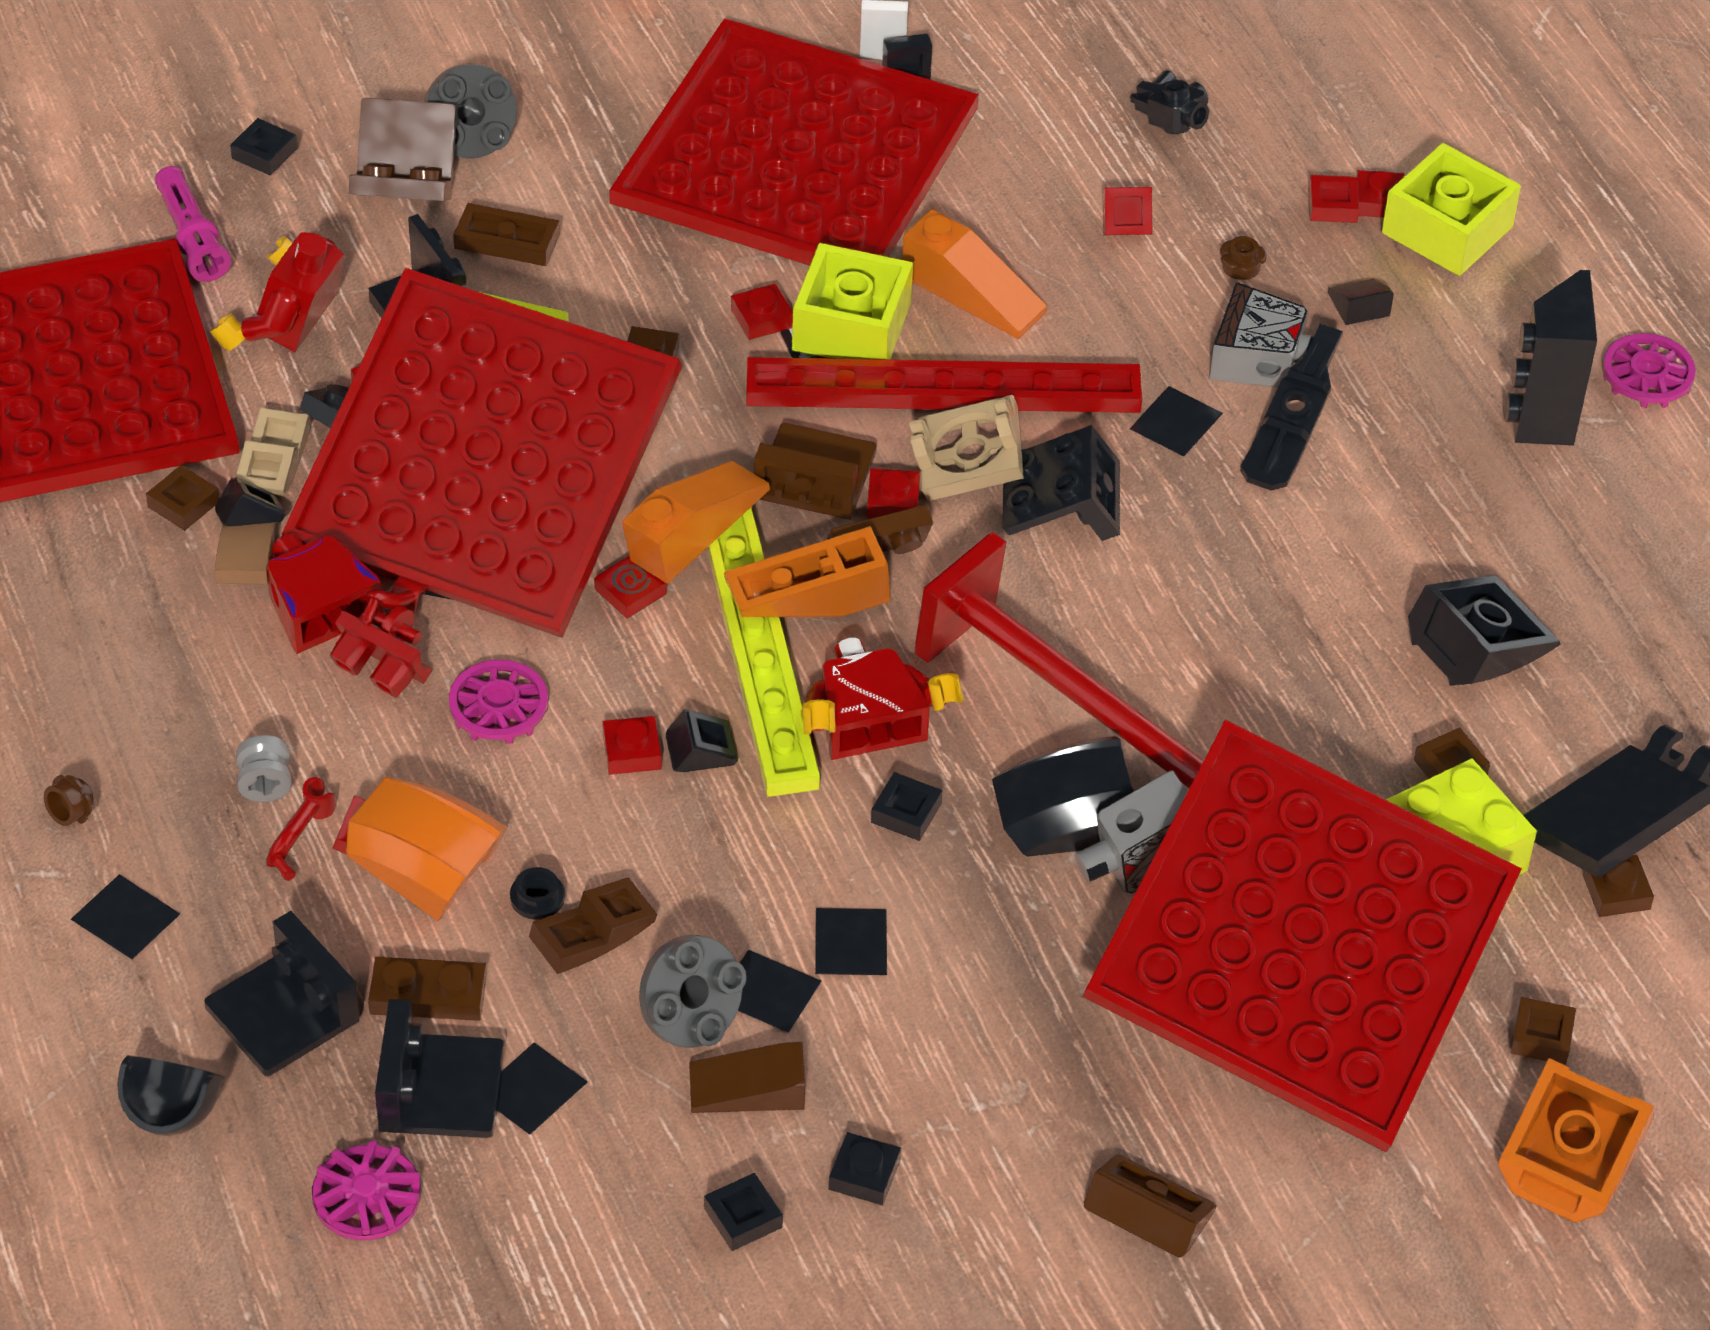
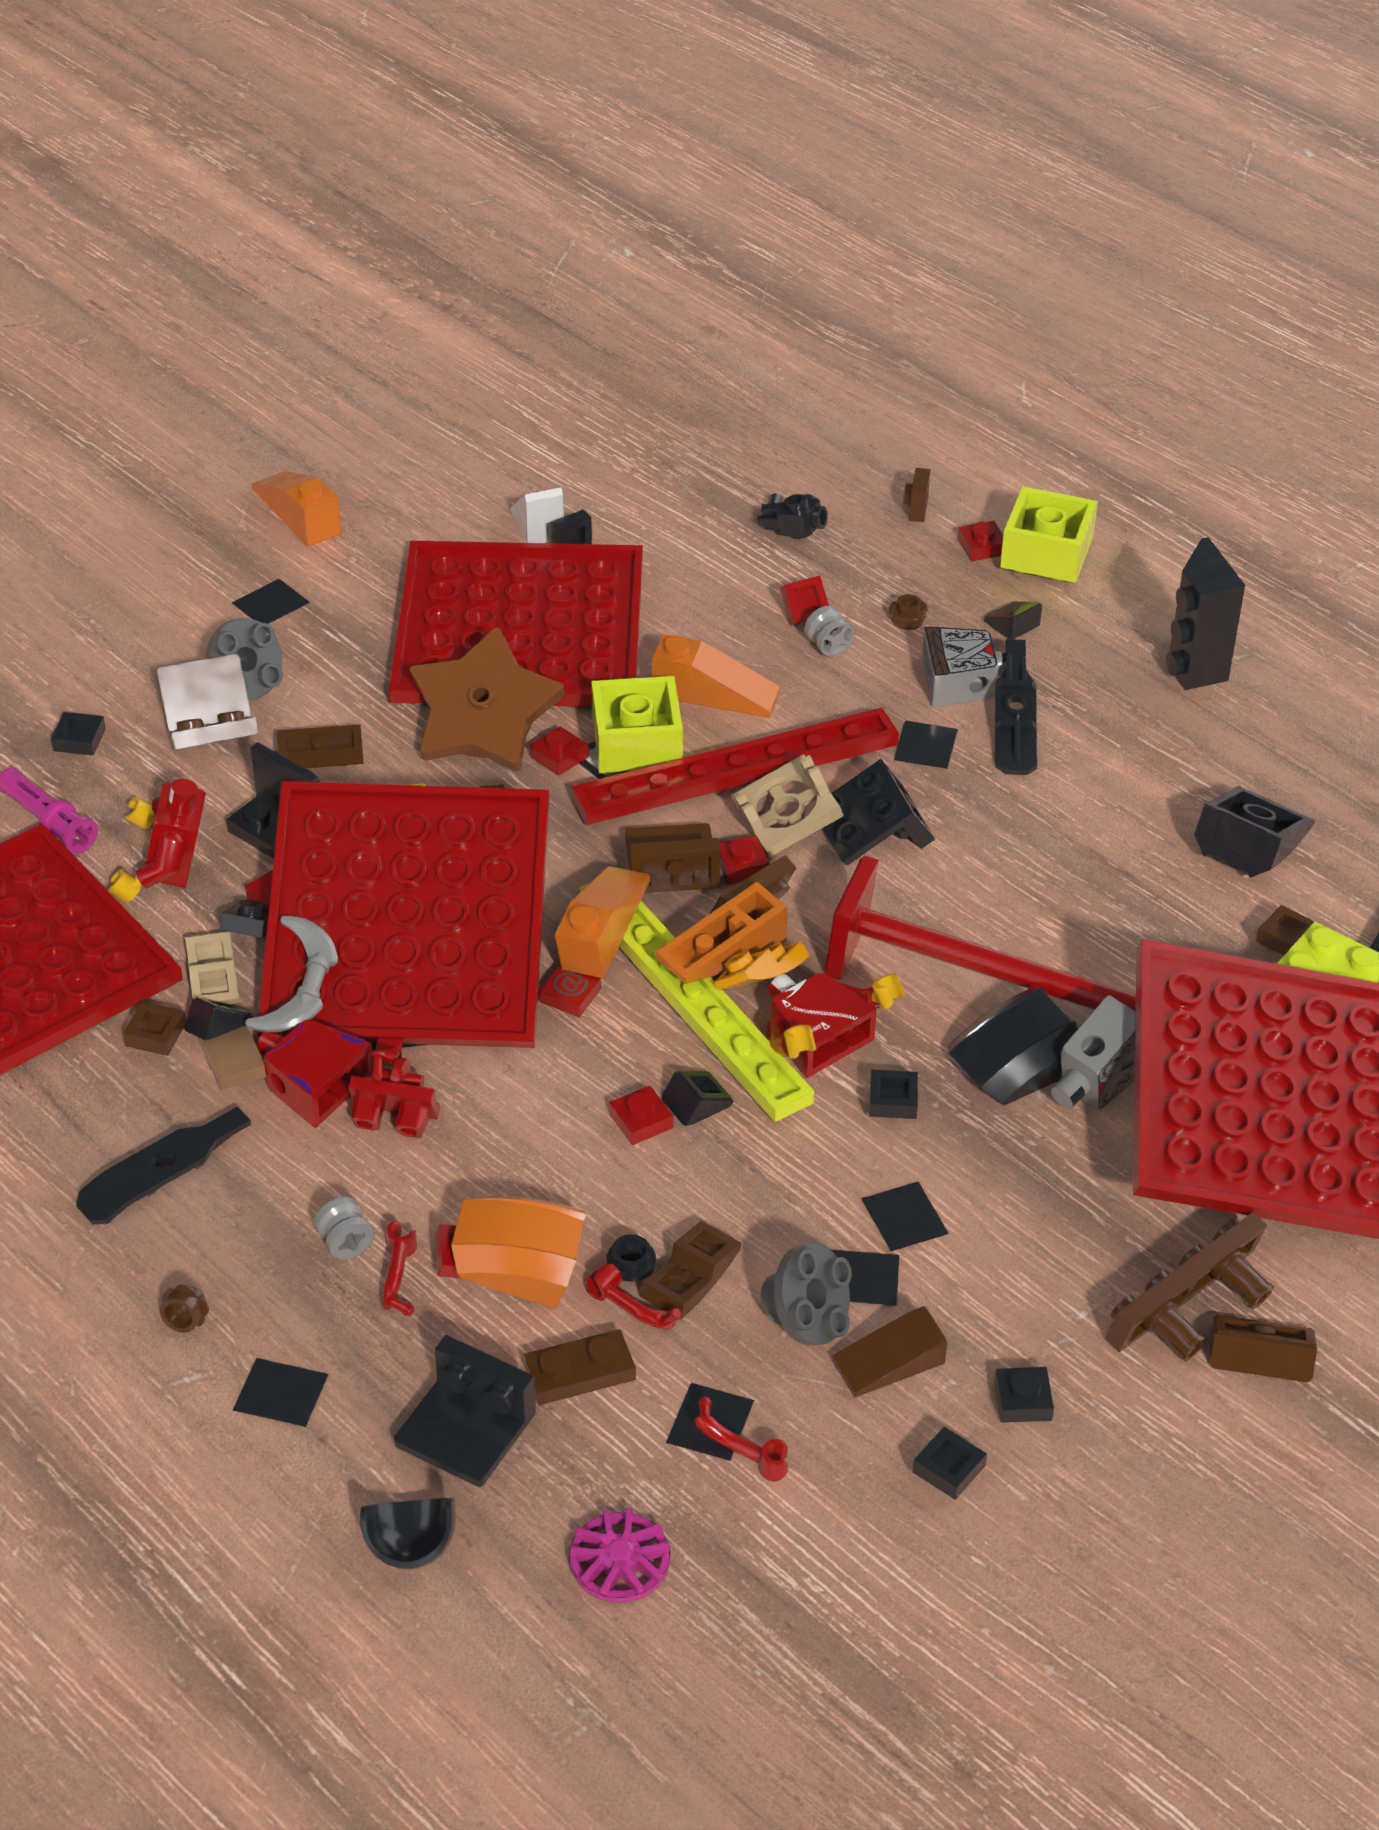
camera: 20 degrees left, 5 degrees down
(97, 646) = (140, 1175): none -> black piece
(337, 518) = (307, 1001): none -> light grey piece
(435, 1080) = (633, 1440): black bracket -> none
(495, 913) = (605, 1284): none -> red piece
(498, 701) = (510, 1113): dark pink wheel -> none
(544, 49) = (271, 602): none -> black sticker
(560, 1137) = (765, 1456): none -> red piece
(696, 234) = (482, 703): none -> dark orange plate
(817, 621) = (771, 962): none -> light orange slope
(1119, 1101) = (1199, 1268): none -> reddish brown plate
(1134, 256) = (829, 631): none -> light grey wheel
(1332, 117) = (917, 494): none -> reddish brown plate
(1333, 198) = (953, 551): red plate -> none
(1649, 369) = (1258, 612): dark pink wheel -> none

